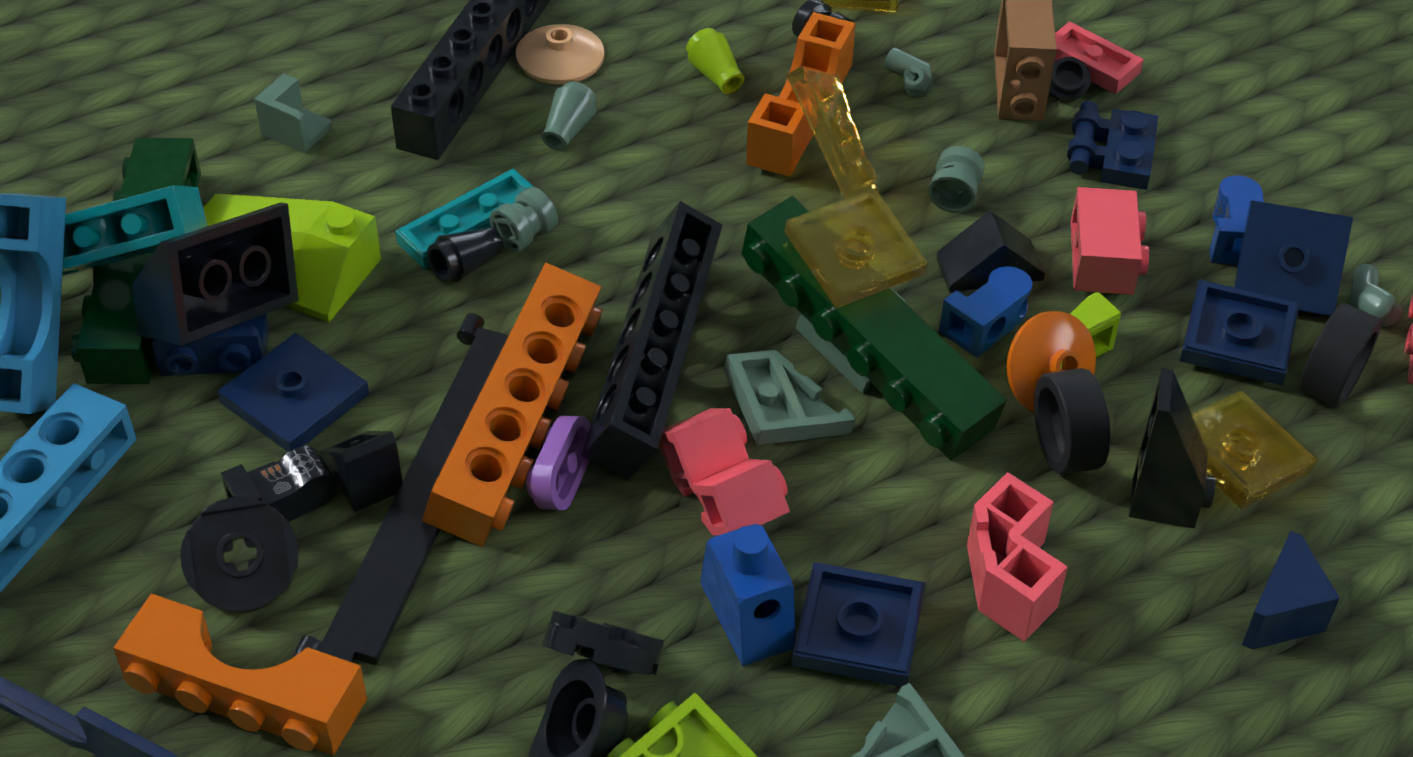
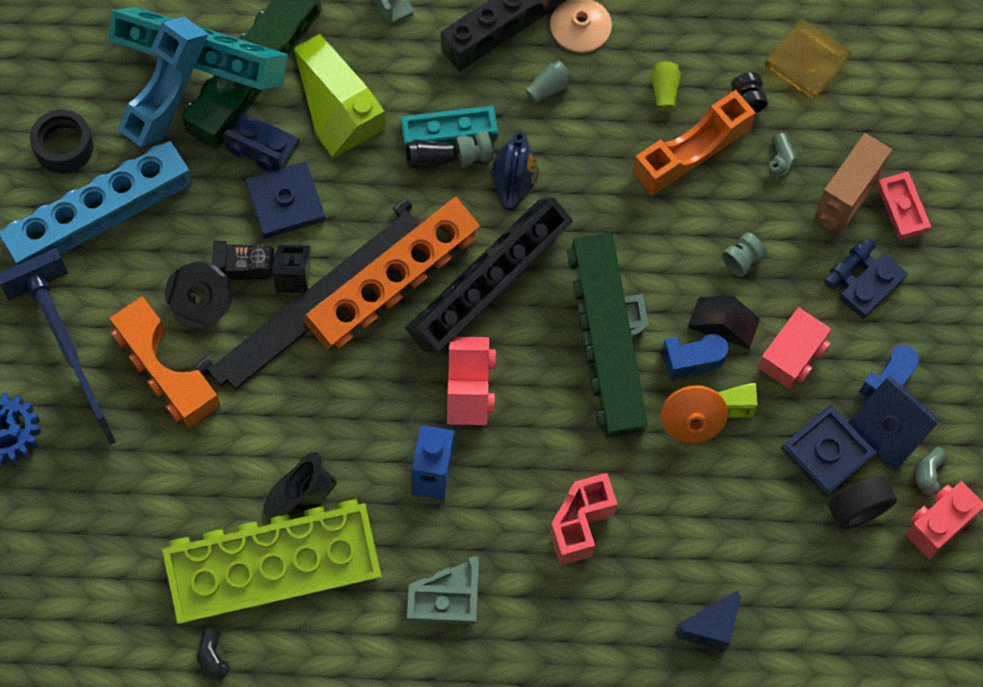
camera: 30 degrees right, 20 degrees up
(217, 277) = (274, 117): black slope -> none
(560, 464) = (390, 327): medium lavender plate -> none
(594, 221) = (514, 171): none -> dark blue hat
(604, 643) = (341, 452): black plate -> none
(781, 401) = (535, 350): sand green wing -> none
(834, 128) = (688, 185): clear yellow wing -> none
(855, 248) = (620, 289): clear yellow plate -> none
(859, 624) = (481, 508): dark blue plate -> none
(1069, 79) = (874, 214): black plate -> none
(1072, 421) = (674, 458): black tyre -> none
(1171, 461) = (705, 514): black slope -> none
(1249, 450) = (764, 524): clear yellow plate -> none

